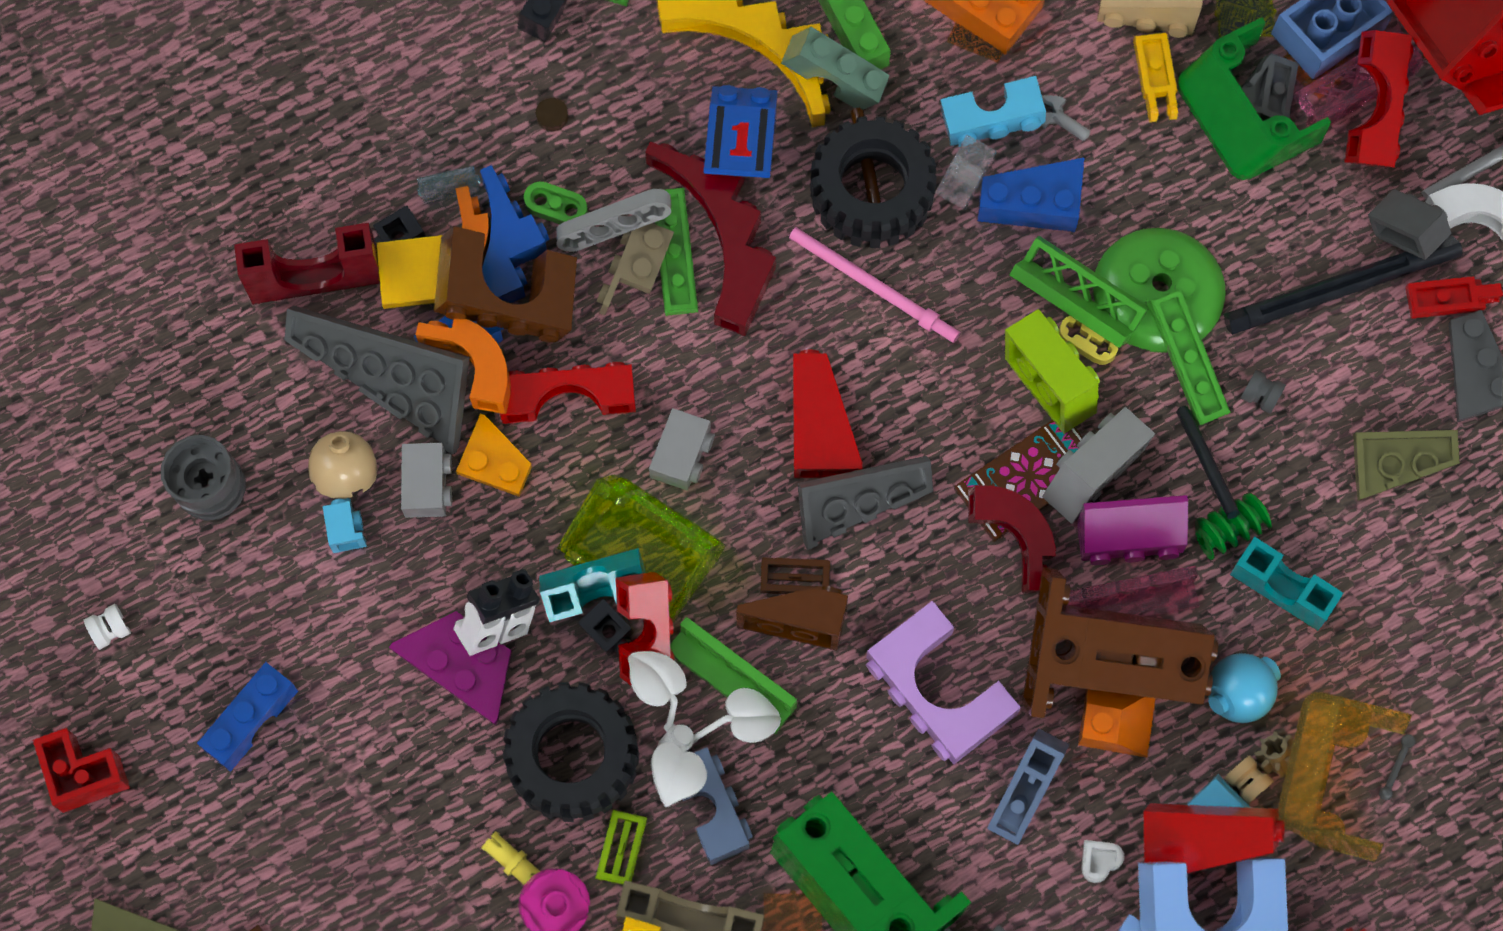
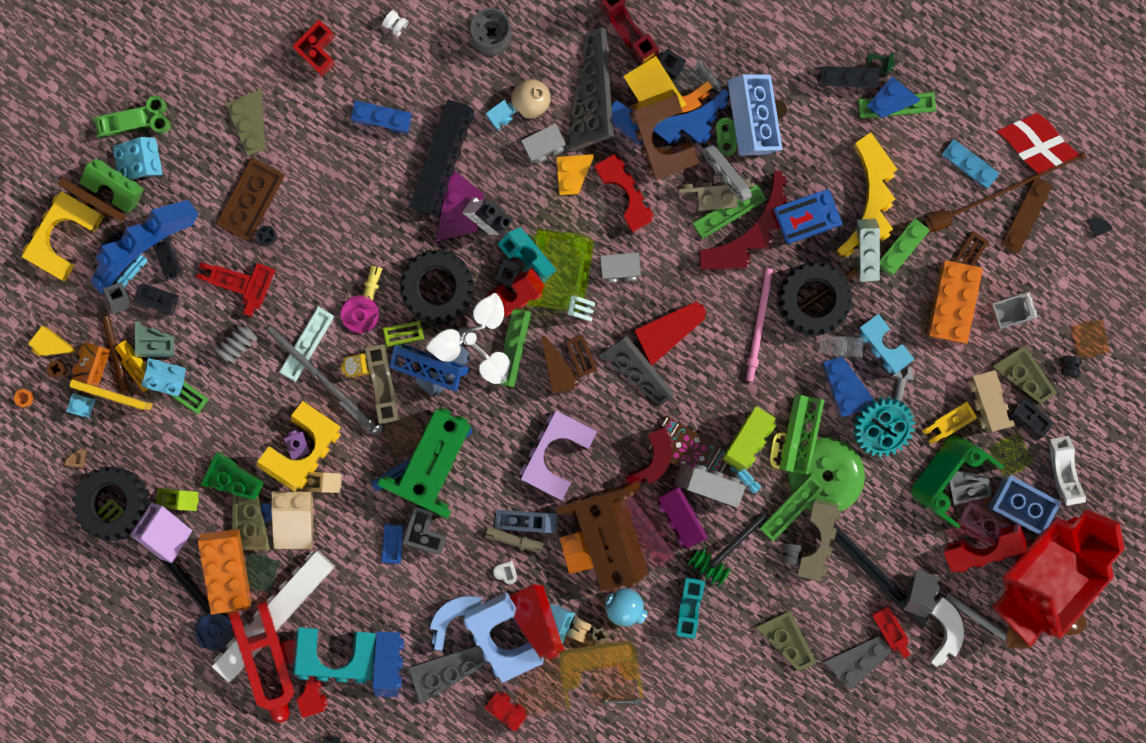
camera: 65 degrees right, 15 degrees up
(365, 649) = (442, 158): none -> black brick
(491, 378) = (615, 149): orange arch -> none
(543, 142) = (754, 115): none -> light blue brick
(688, 815) = (426, 358): none -> blue fence
(715, 533) = (587, 310): none -> light aqua tile
(1051, 820) = (514, 540): none -> dark tan pin
(1112, 406) = (747, 479): none -> medium azure axle
(1133, 188) = (895, 412): none -> teal gear
(1292, 360) = (823, 516): none -> dark tan arch

